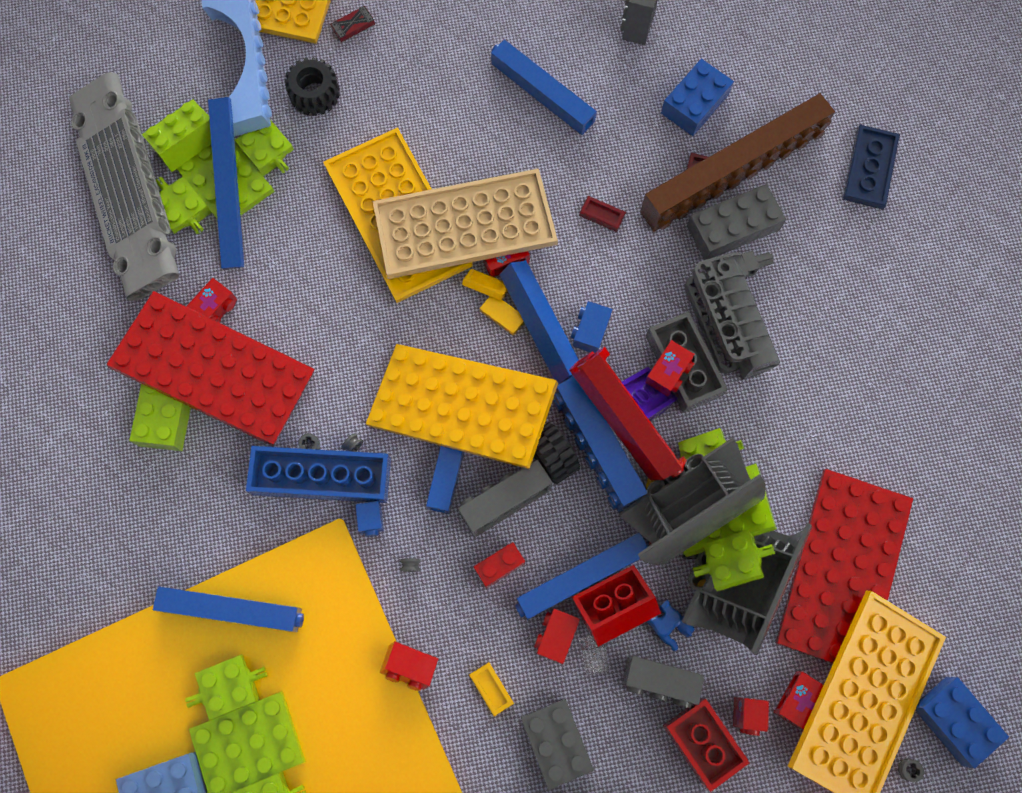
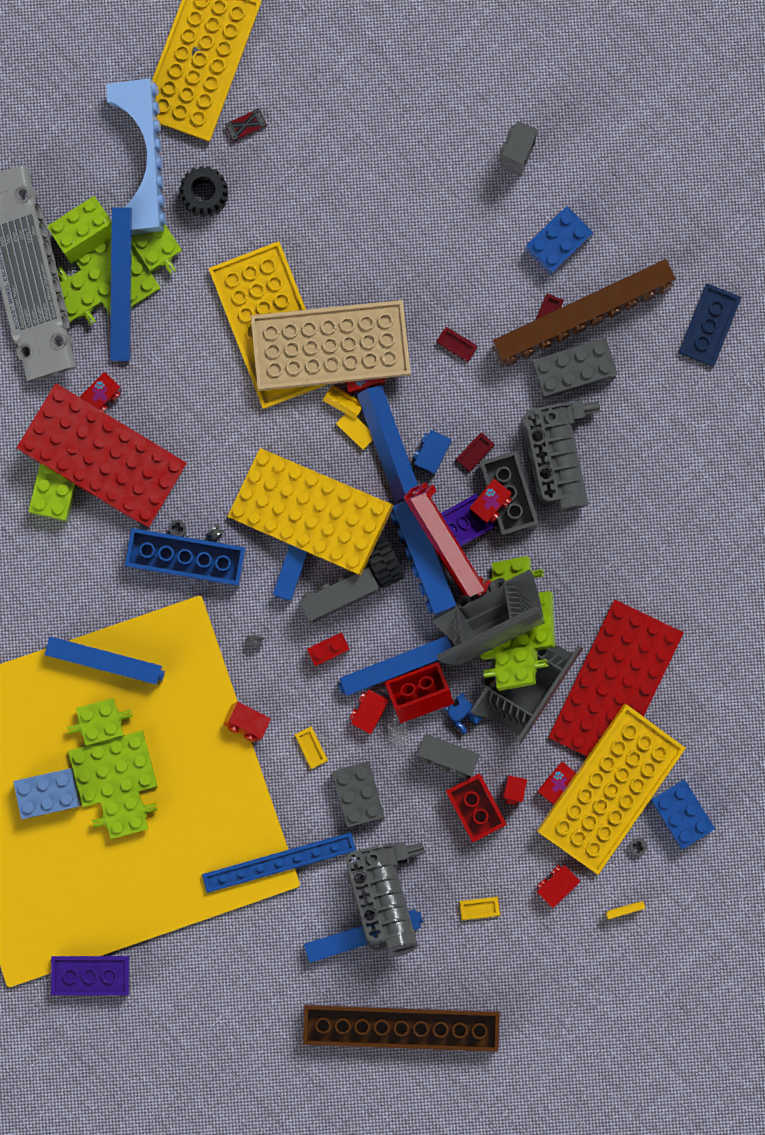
camera: 10 degrees right, 10 degrees up
(369, 518) = (224, 599): blue brick -> none
(543, 87) = (417, 213): blue brick -> none
(639, 323) = (475, 452): none -> dark red tile

